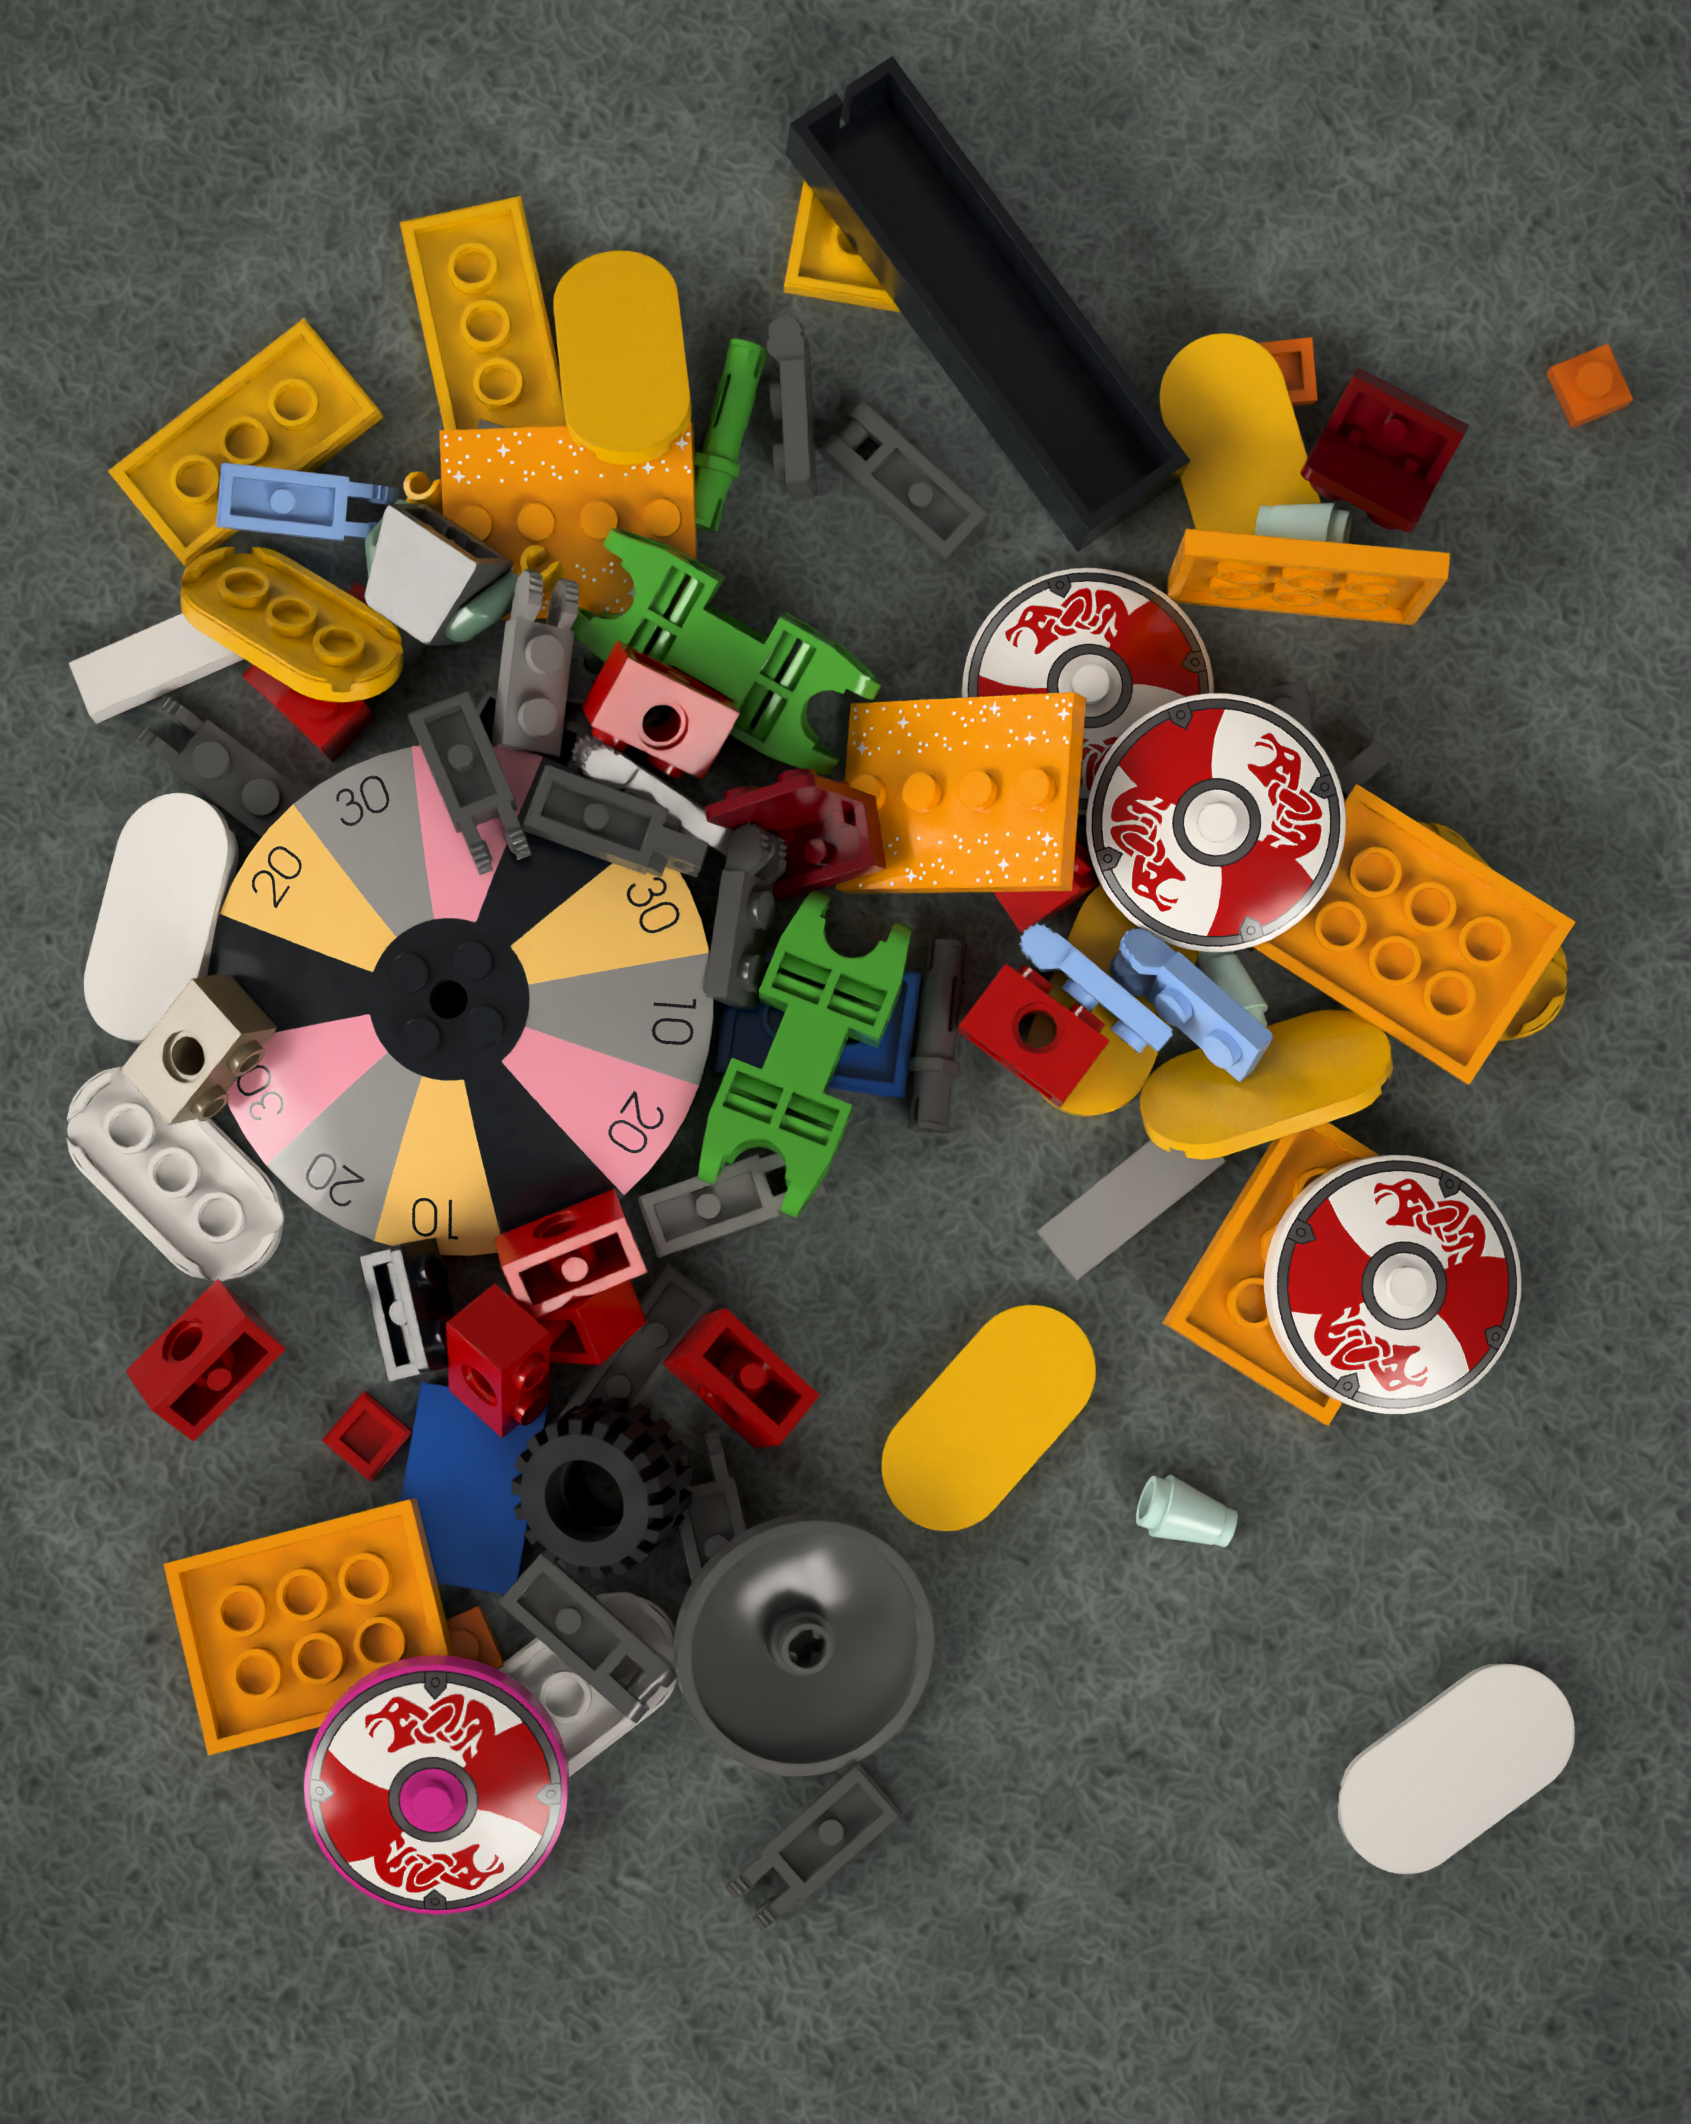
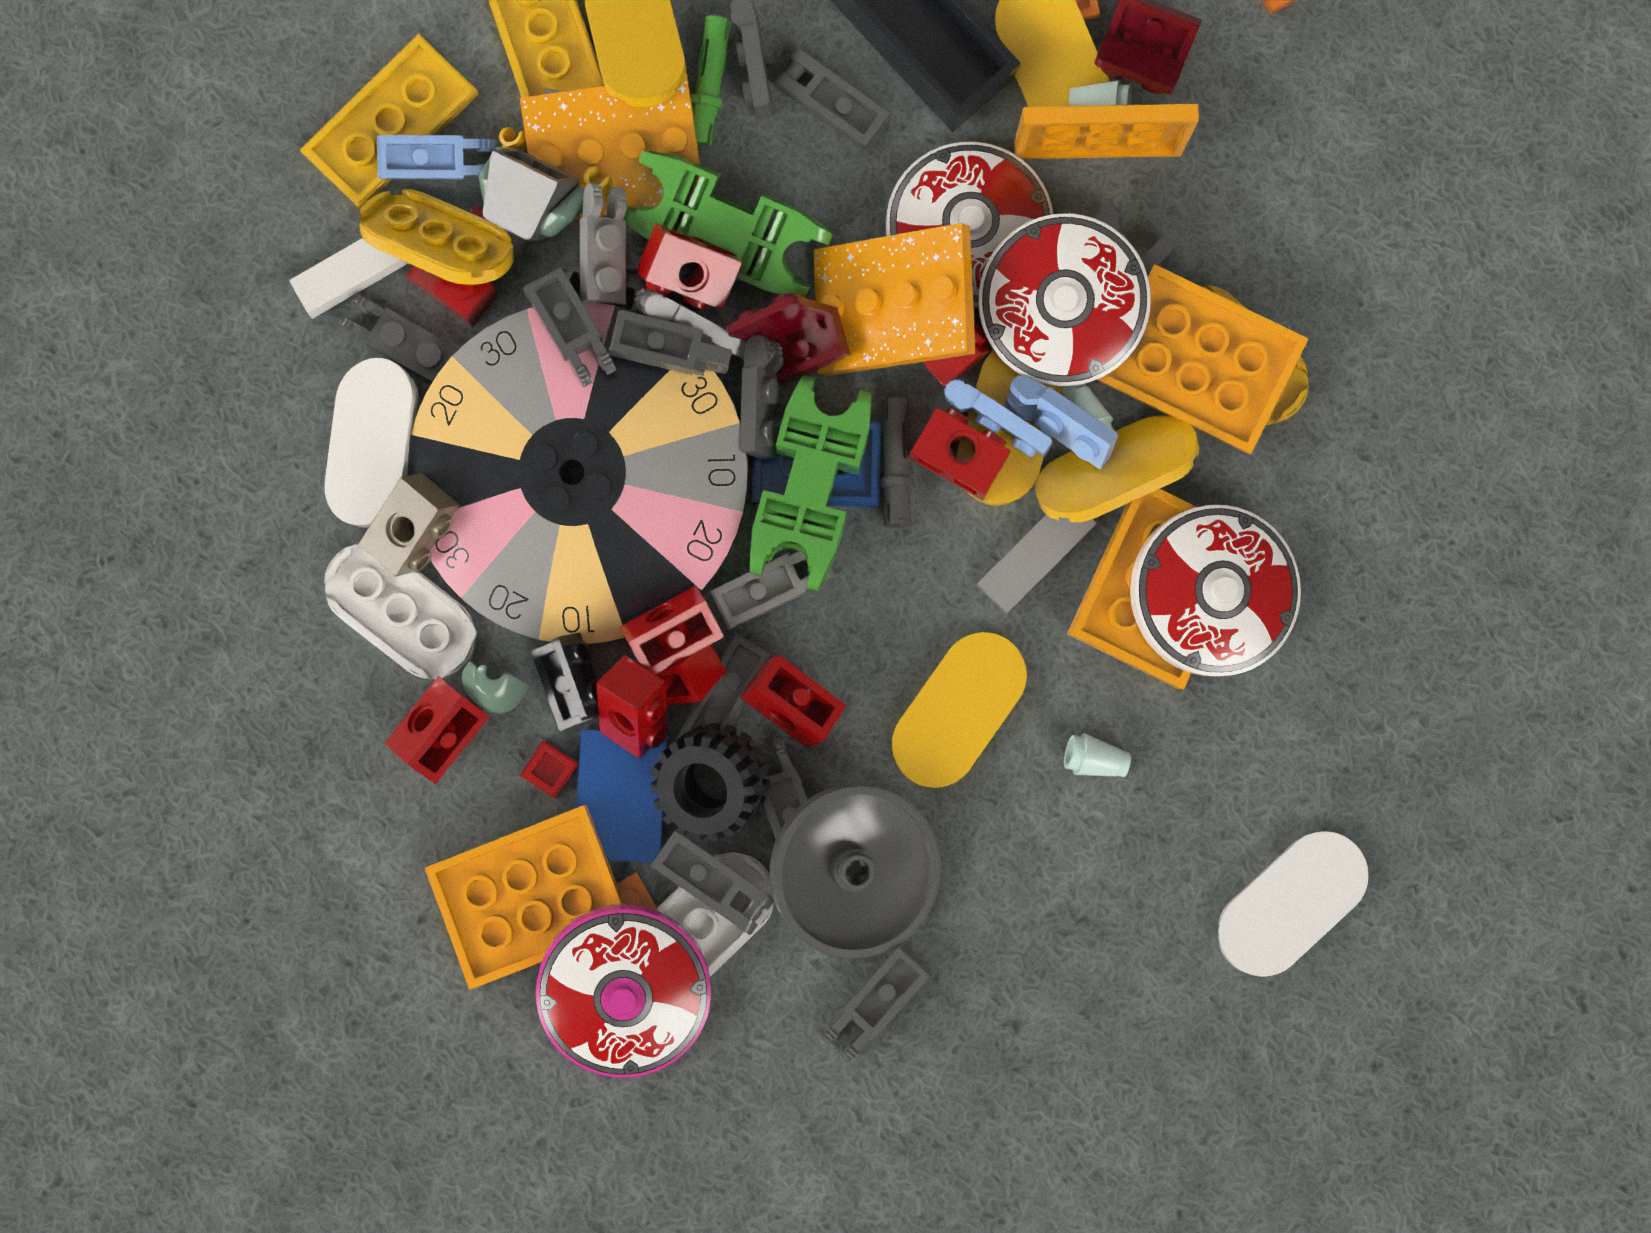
camera: 10 degrees left, 0 degrees up
(291, 1312) = (492, 693): none -> sand green hair

